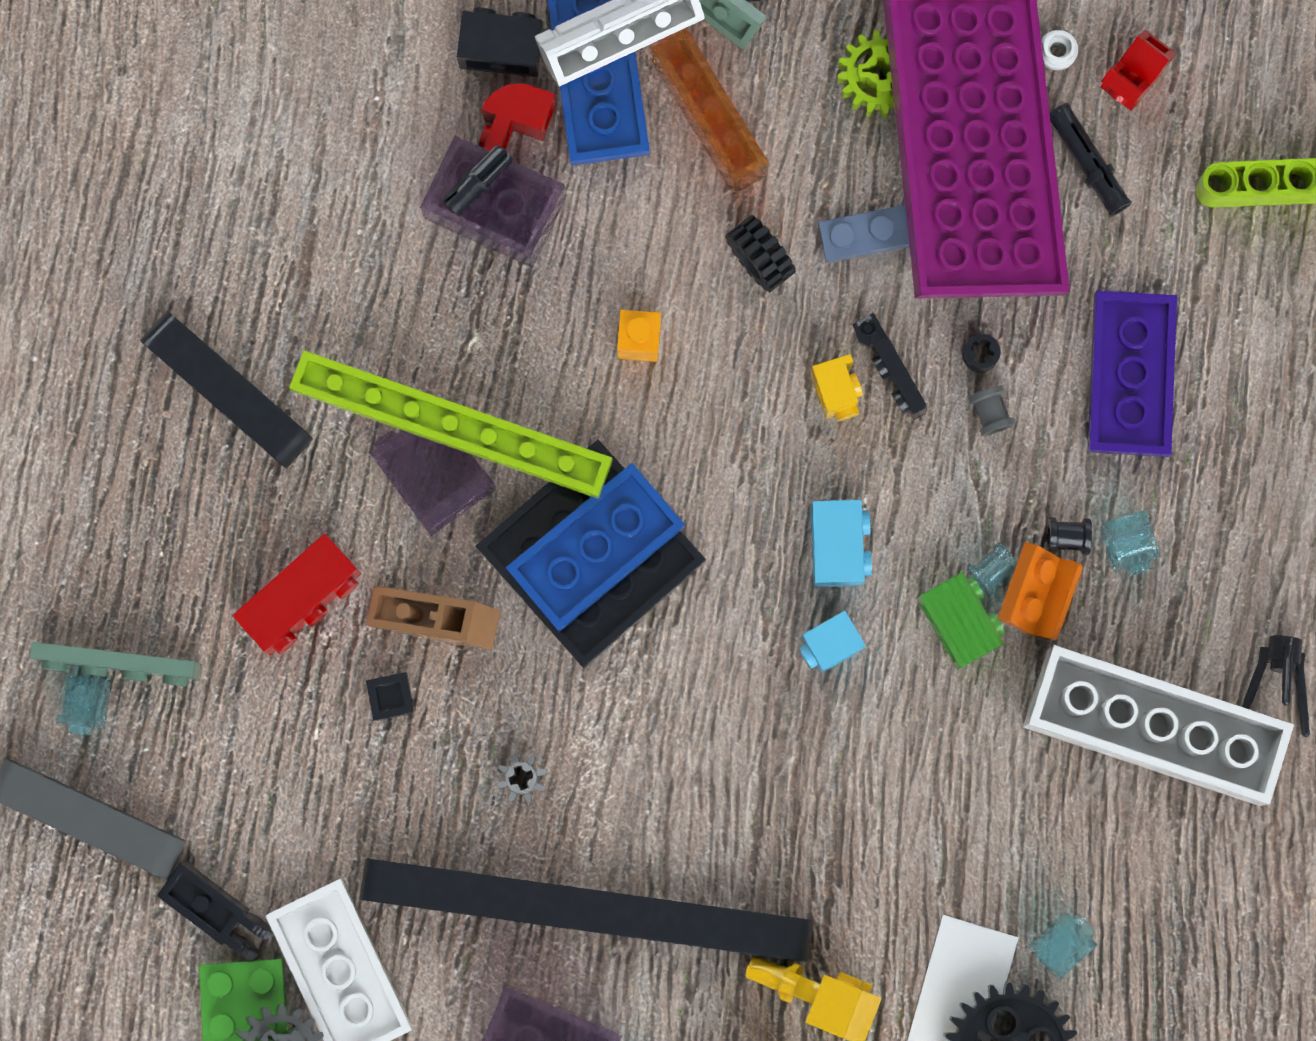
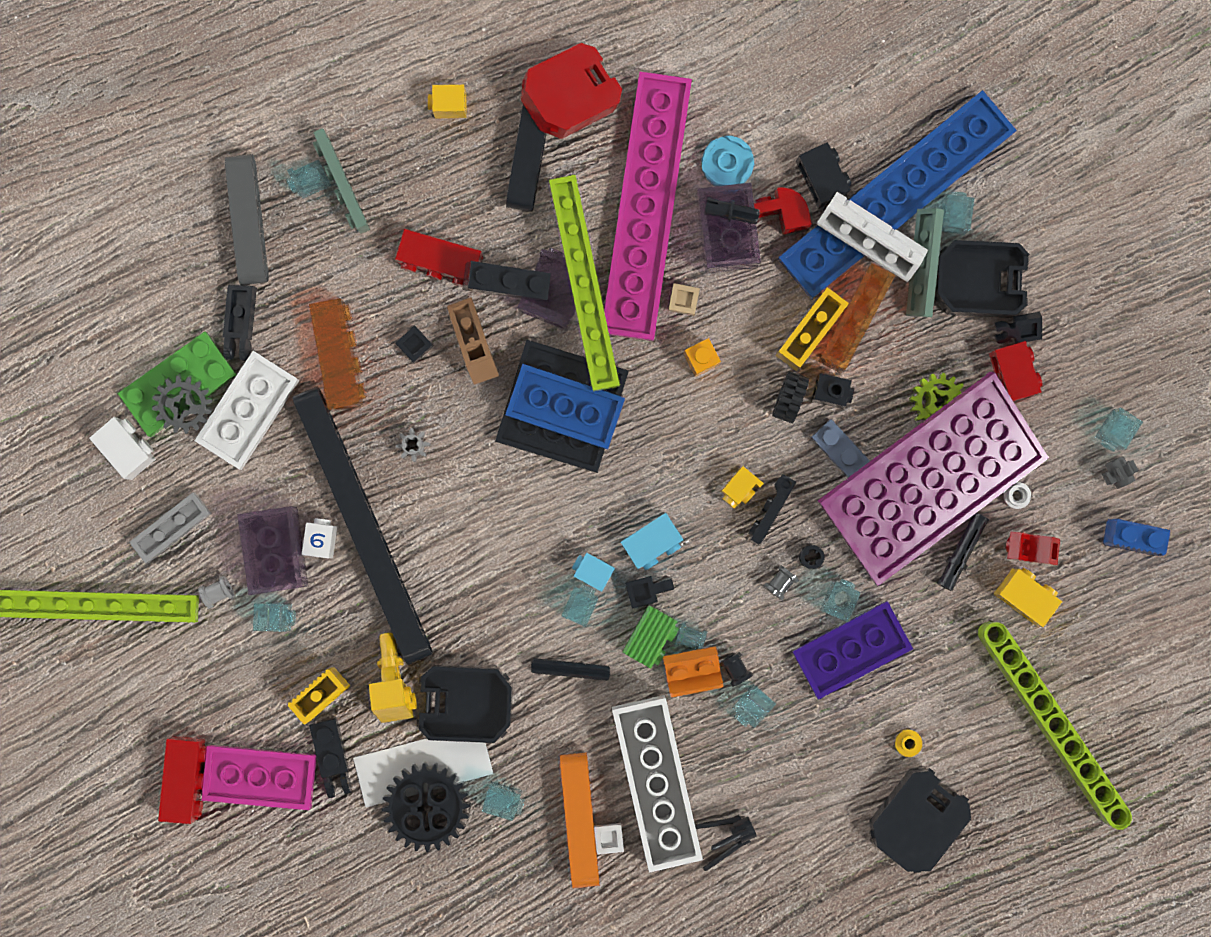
camera: 55 degrees right, 5 degrees up
(100, 459) = (448, 101): none -> yellow brick
(189, 302) = (566, 95): none -> red piece
(340, 807) = (336, 354): none -> clear orange brick
(385, 523) = (506, 281): none -> black brick
(398, 287) = (646, 205): none -> dark pink plate
(406, 153) = (727, 161): none -> medium azure tile
(549, 314) = (684, 299): none -> tan plate
(569, 978) = (319, 539): none -> white brick
(689, 175) = (812, 329): none -> yellow brick
(783, 198) = (832, 391): none -> black brick
(865, 685) = (580, 605): none -> clear light blue brick
(897, 592) = (644, 591): none -> black plate
(914, 905) = (475, 704): none -> black piece
(941, 751) = (570, 669): none -> black axle
(1055, 366) = (829, 605): none -> clear light blue brick
(1147, 858) = (579, 820): none -> orange beam
(1193, 834) = (608, 838): none -> white plate
(1196, 112) = (1028, 597): none -> yellow brick
(1284, 381) = (900, 743): none -> yellow plate

